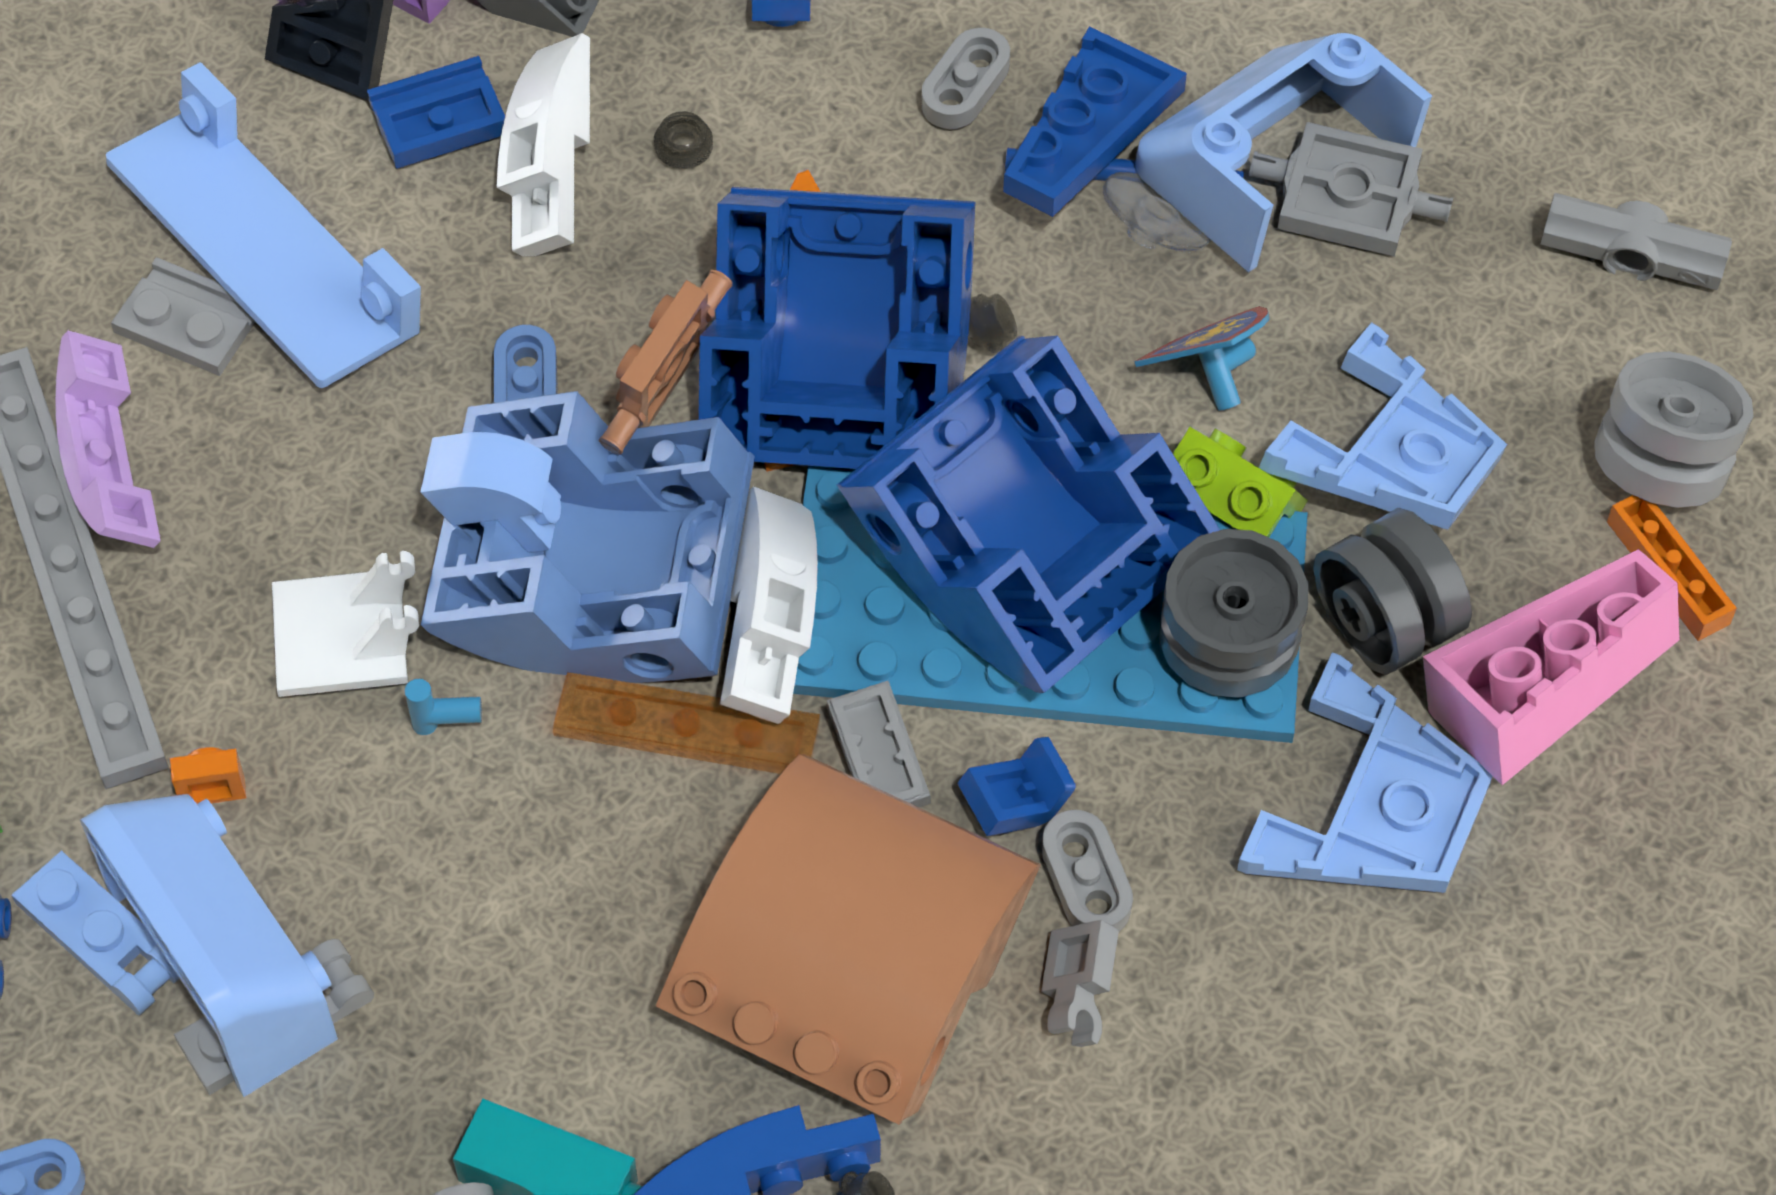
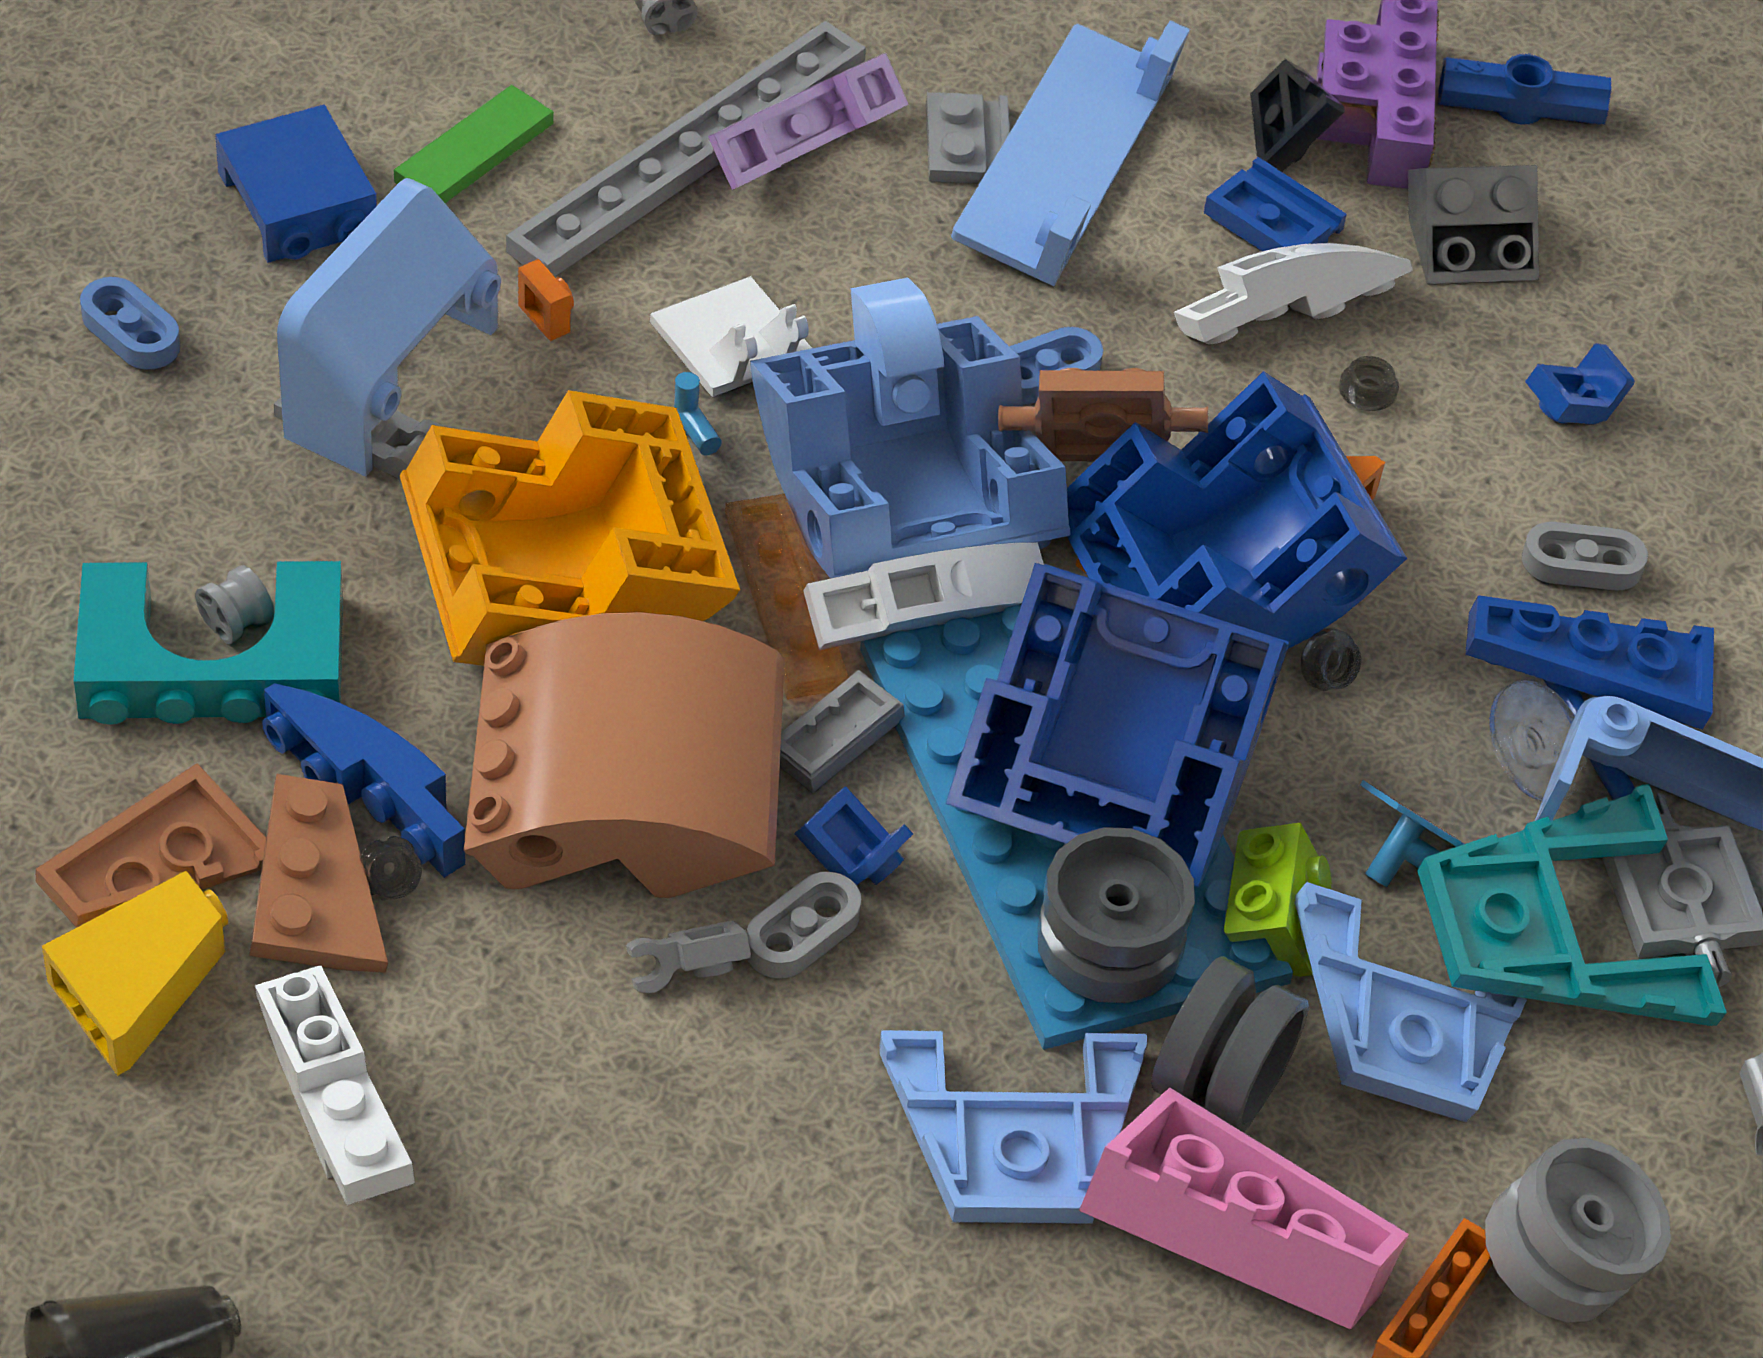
camera: 60 degrees right, 10 degrees down
(544, 880) = (567, 524): none -> light orange slope
(1345, 323) = (1511, 931): none -> teal wing

